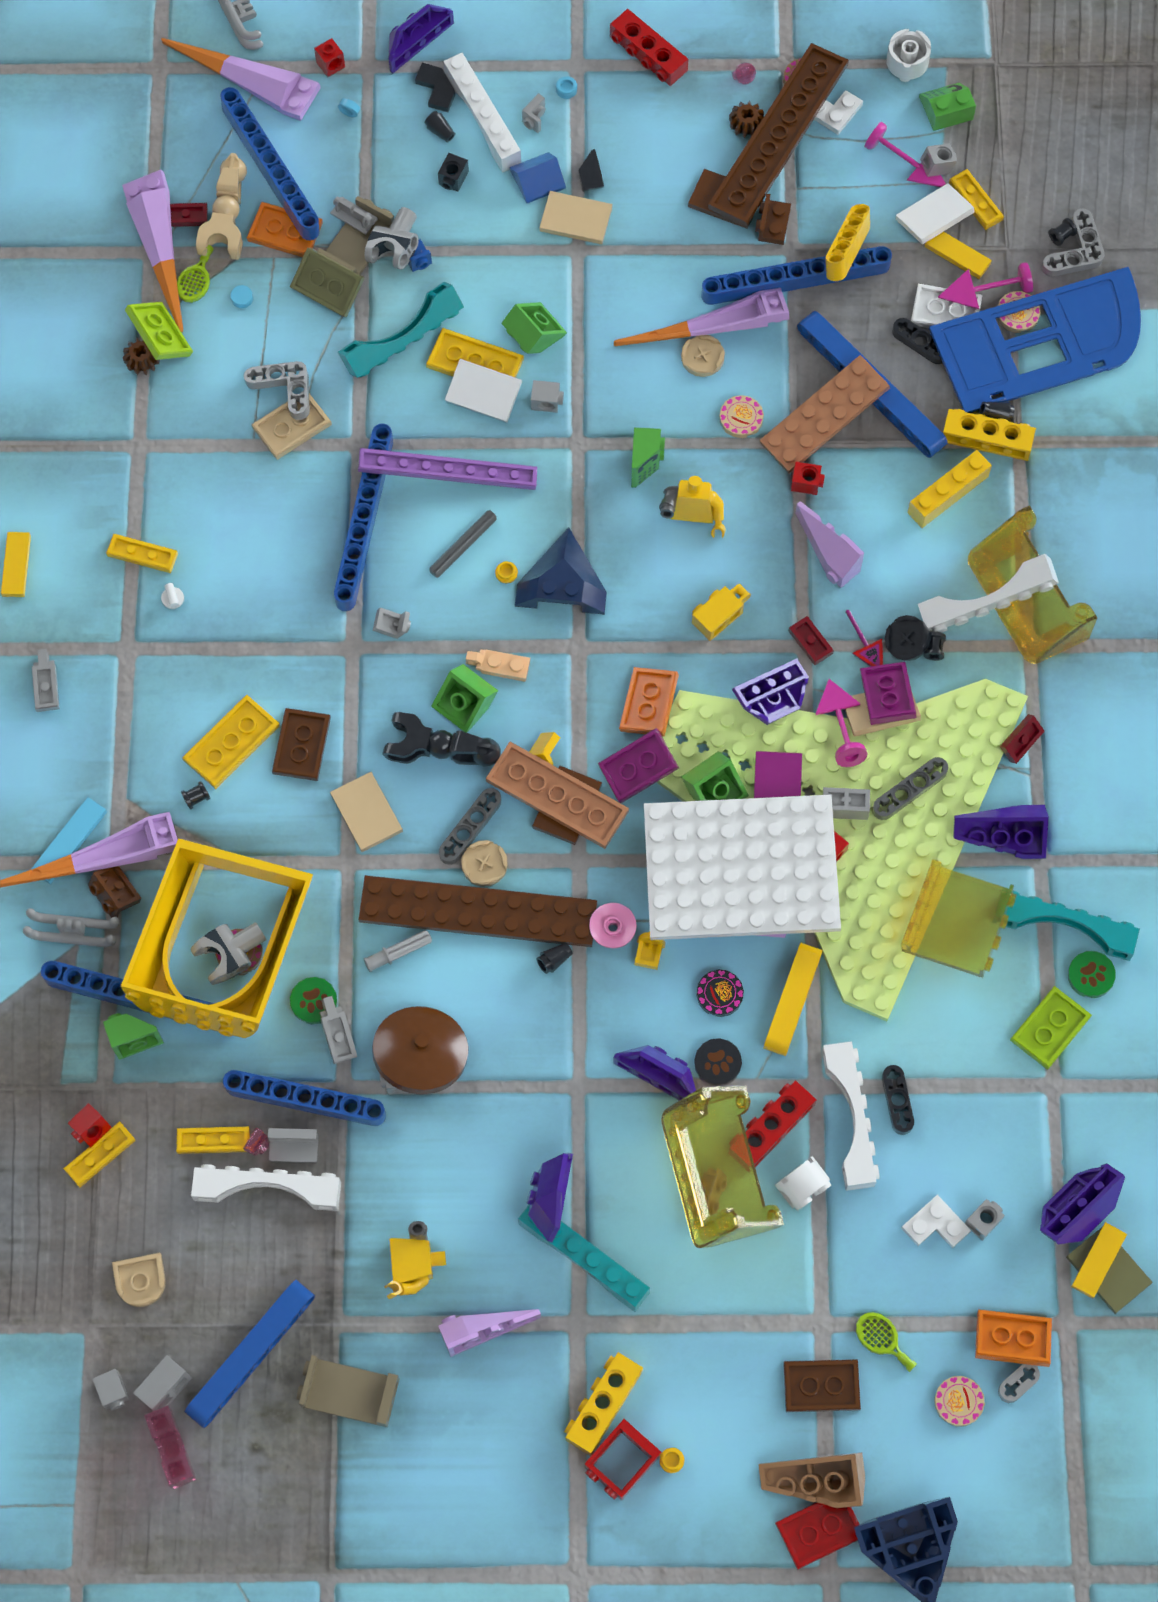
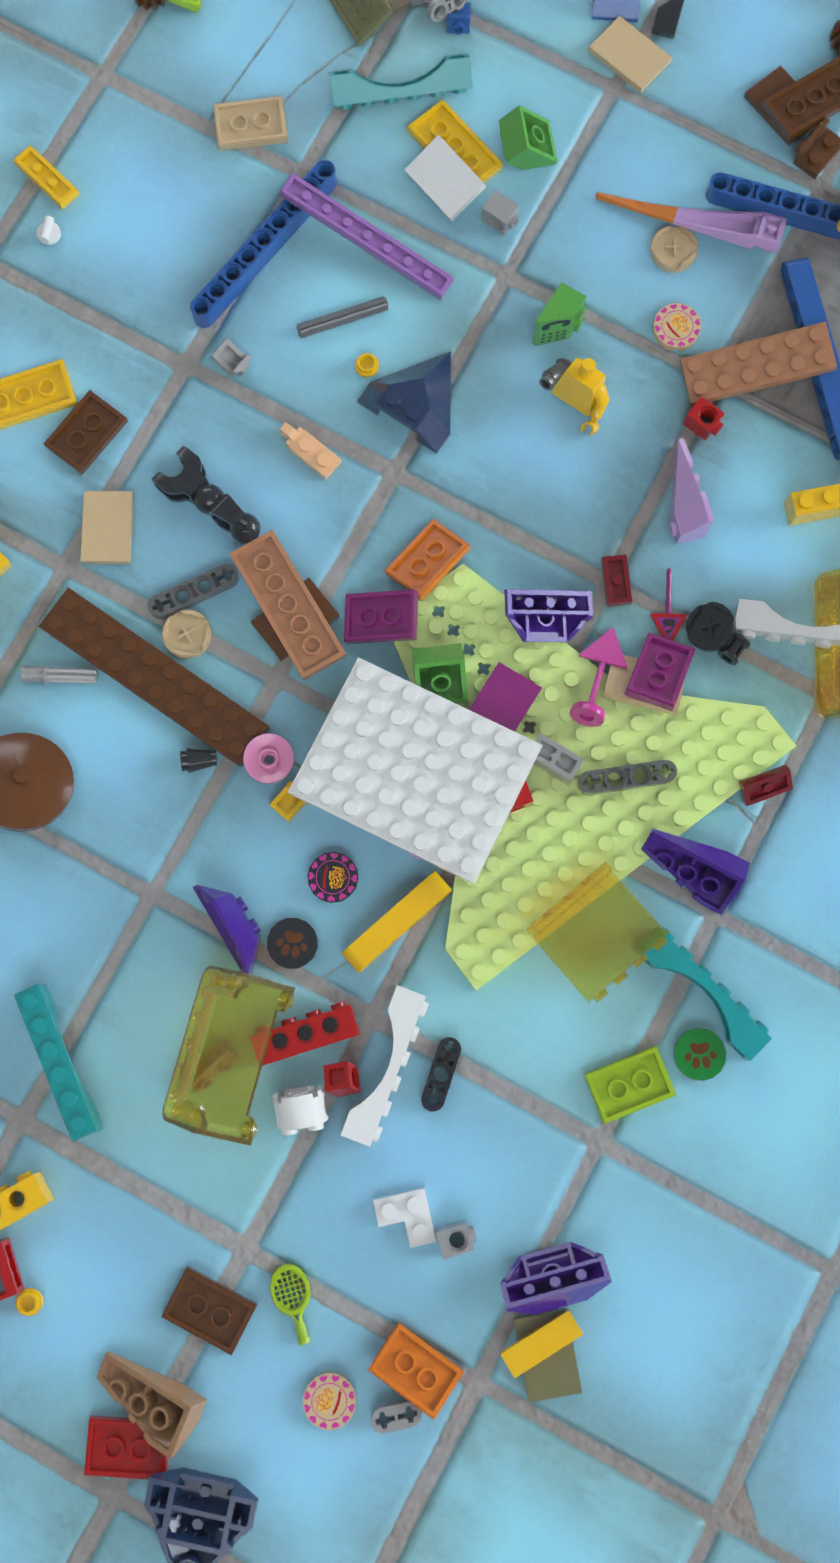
camera: 30 degrees right, 10 degrees up
(291, 381) = (276, 76): light grey beam -> none
(464, 697) = (257, 465): bright green slope -> none
(544, 745) = (302, 552): yellow tile -> none
(549, 1194) = (52, 988): dark purple wedge -> none
(719, 610) = (546, 506): yellow brick -> none
(822, 1142) = (341, 1079): none -> red brick

